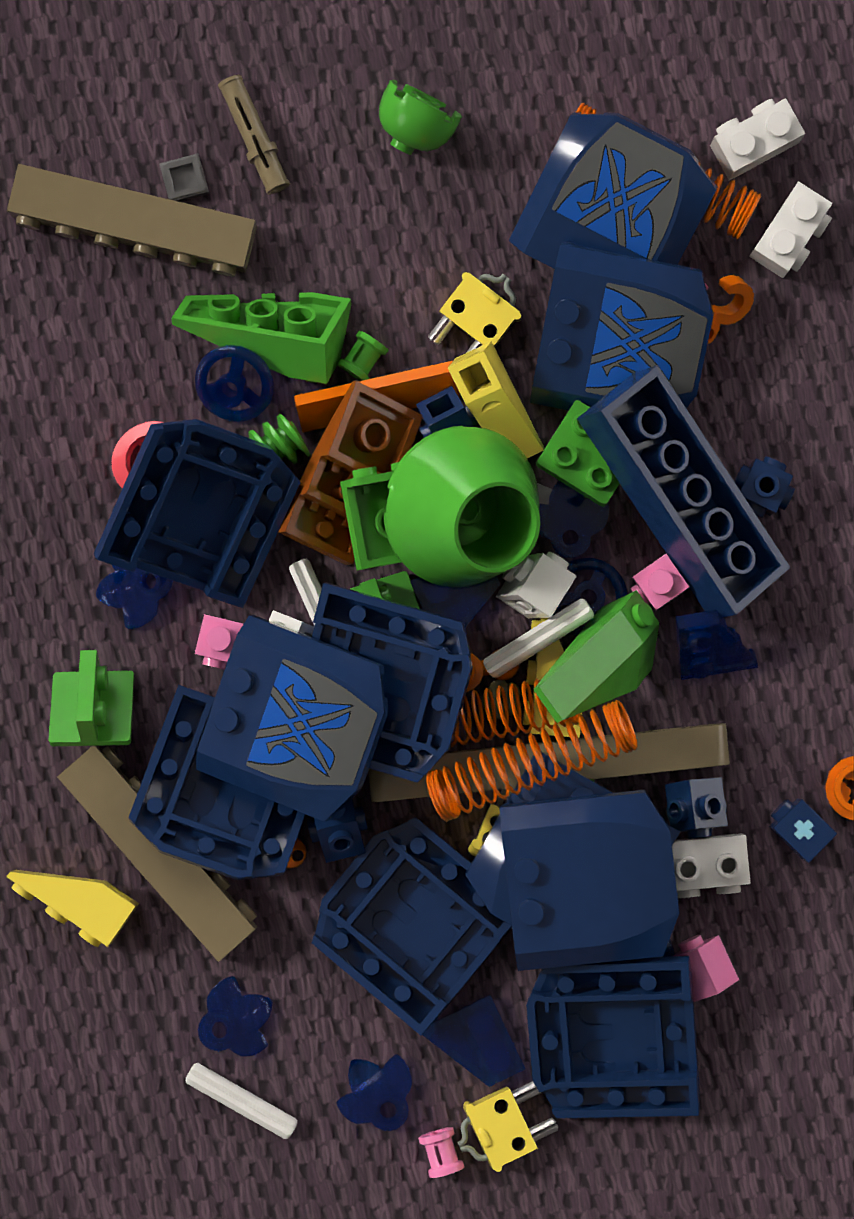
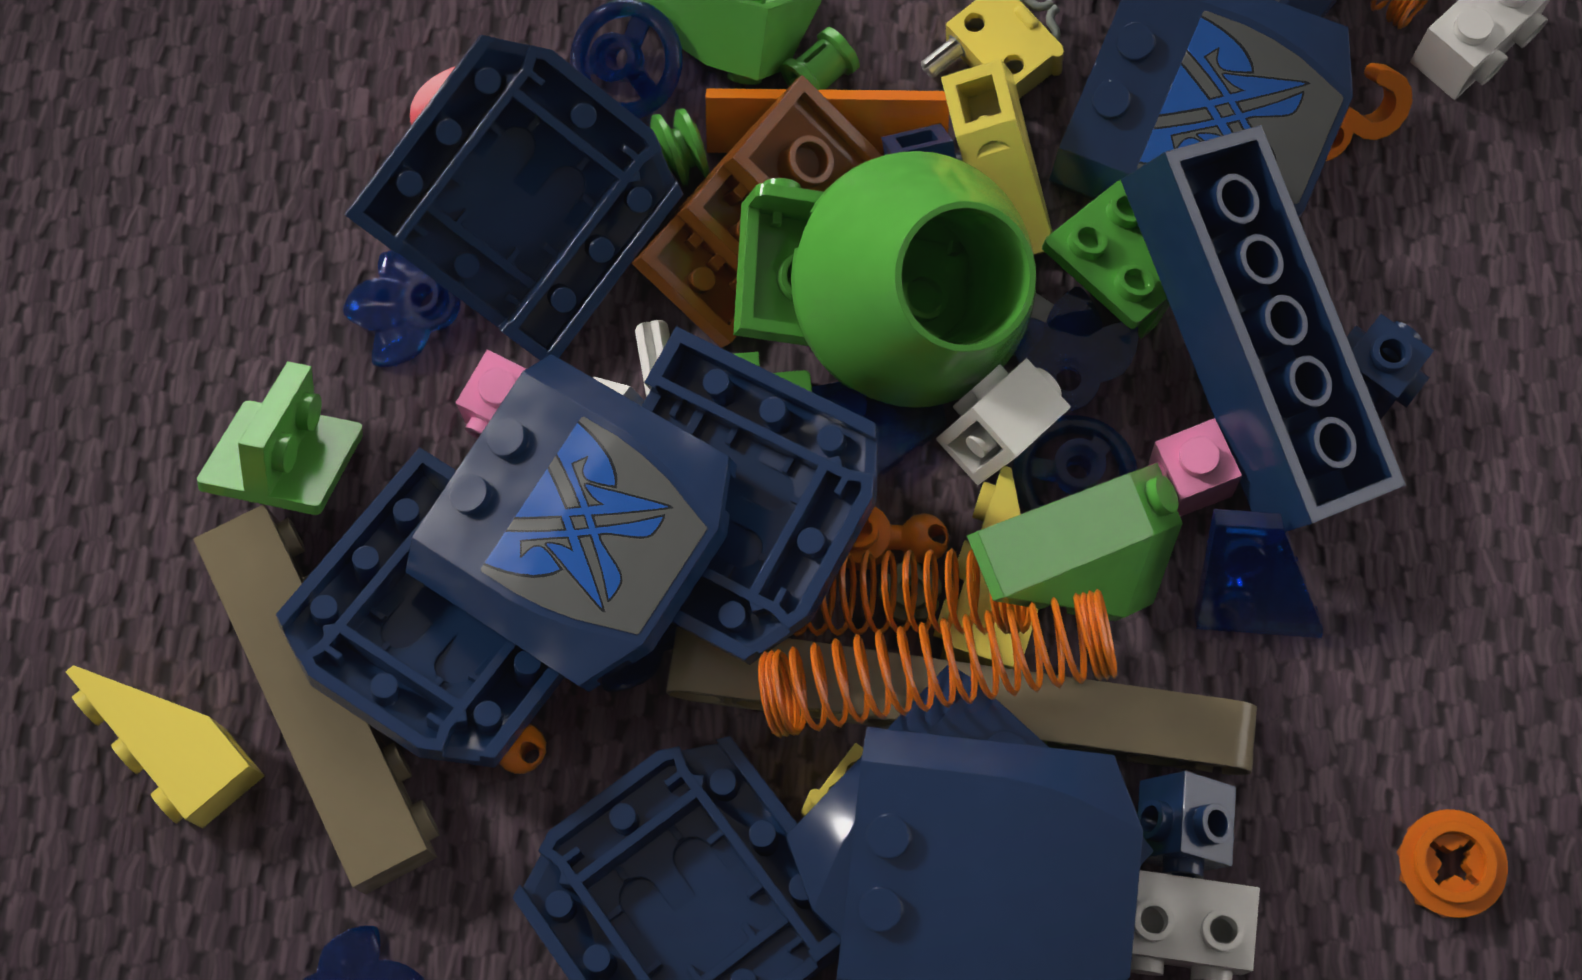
camera: 15 degrees right, 15 degrees down
(342, 834) = (605, 723): dark blue brick -> none
(538, 638) = (989, 498): white axle -> none
(801, 828) = (1351, 905): dark blue brick -> none

